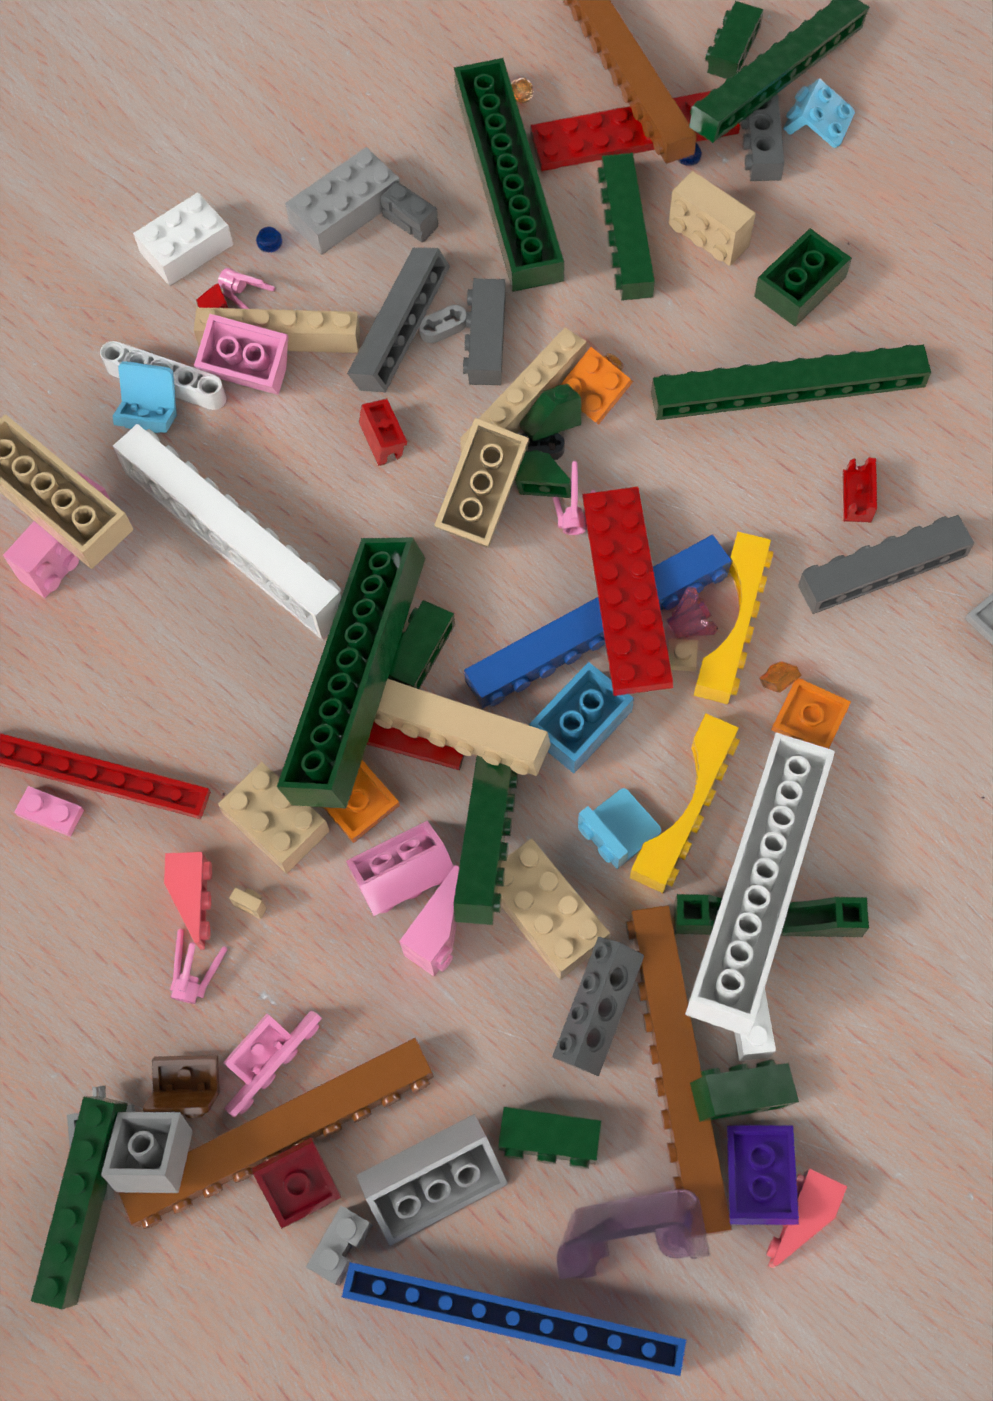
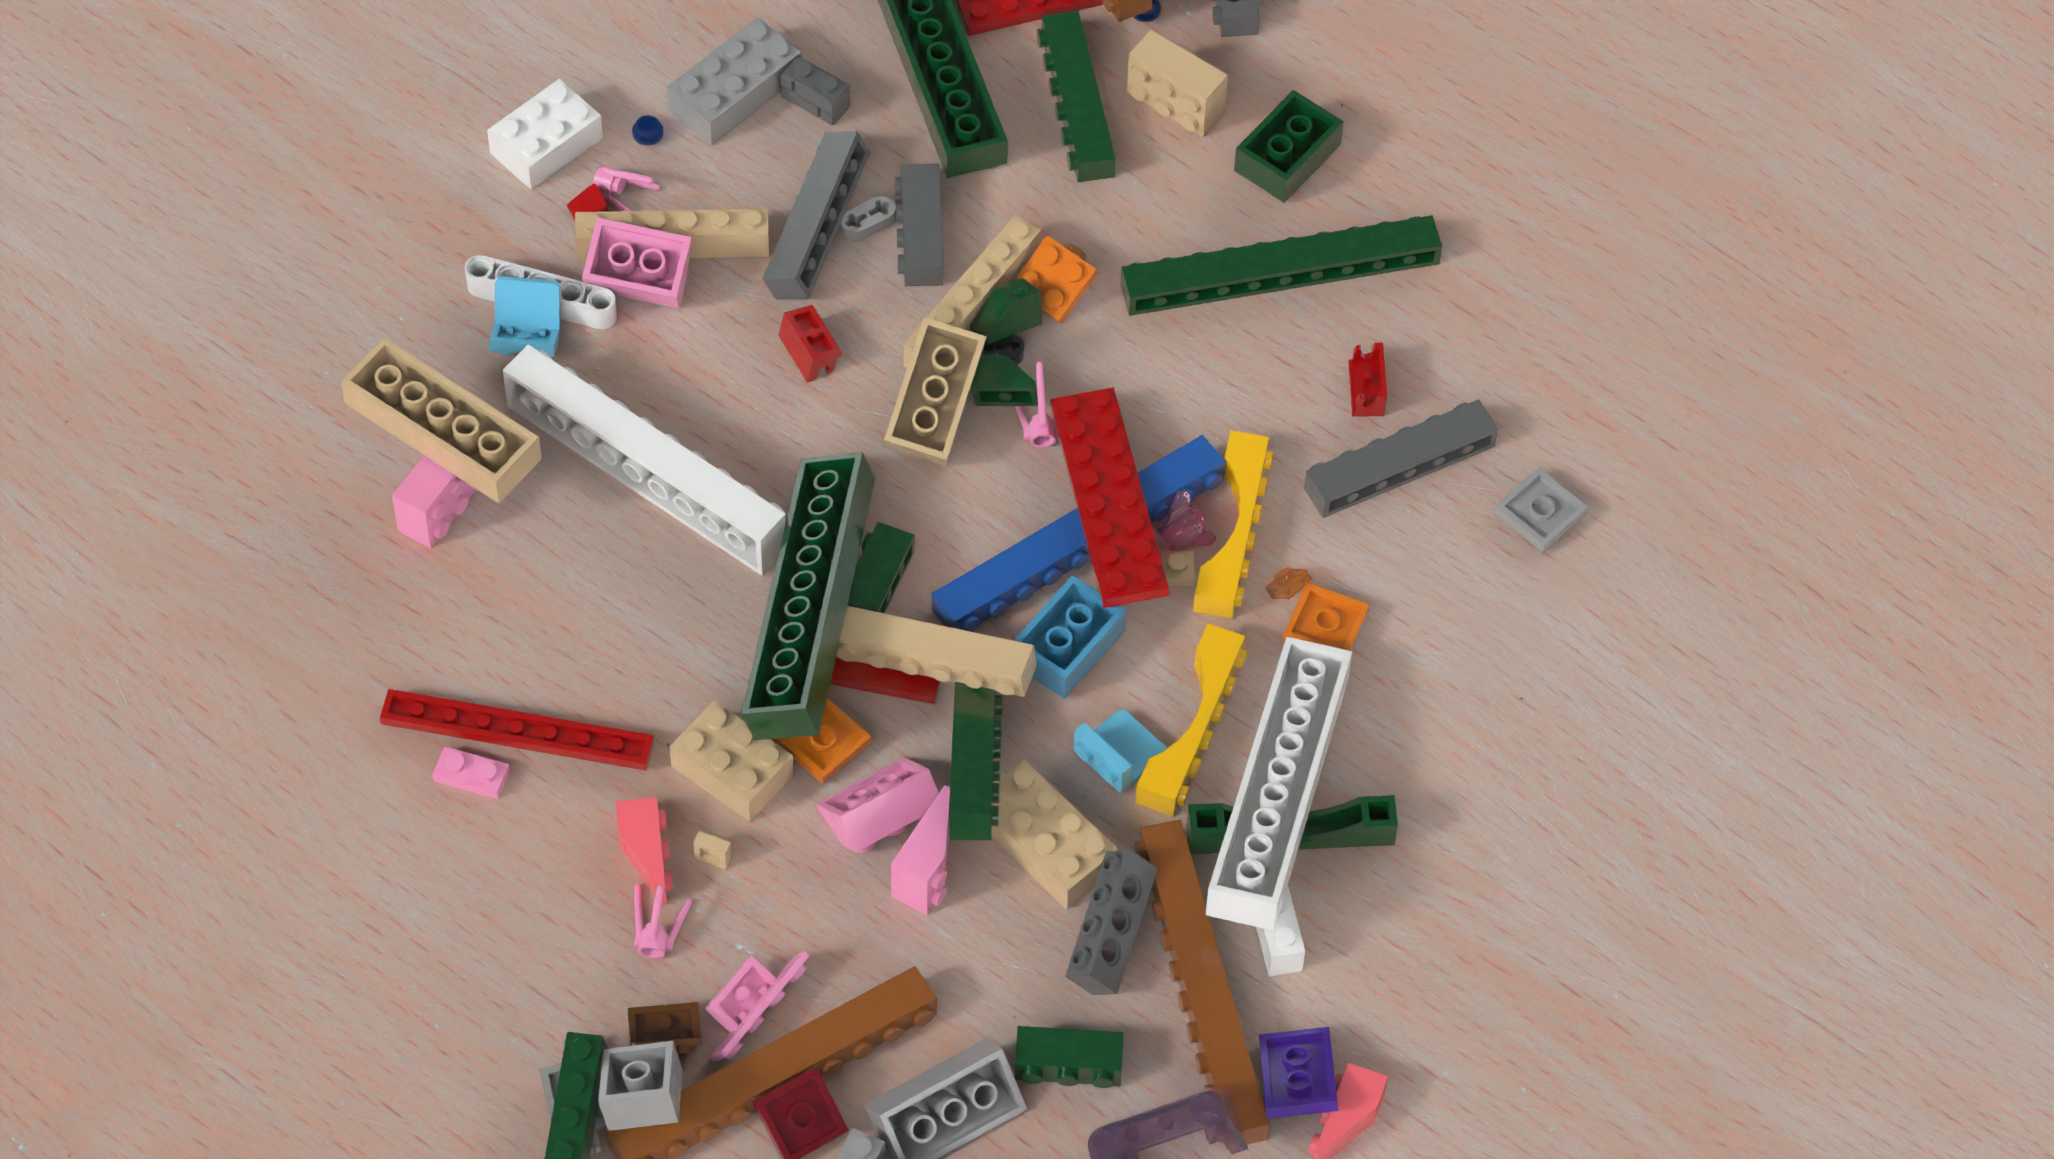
camera: 10 degrees left, 10 degrees down
(743, 1090) = (1274, 994): dark green brick -> none

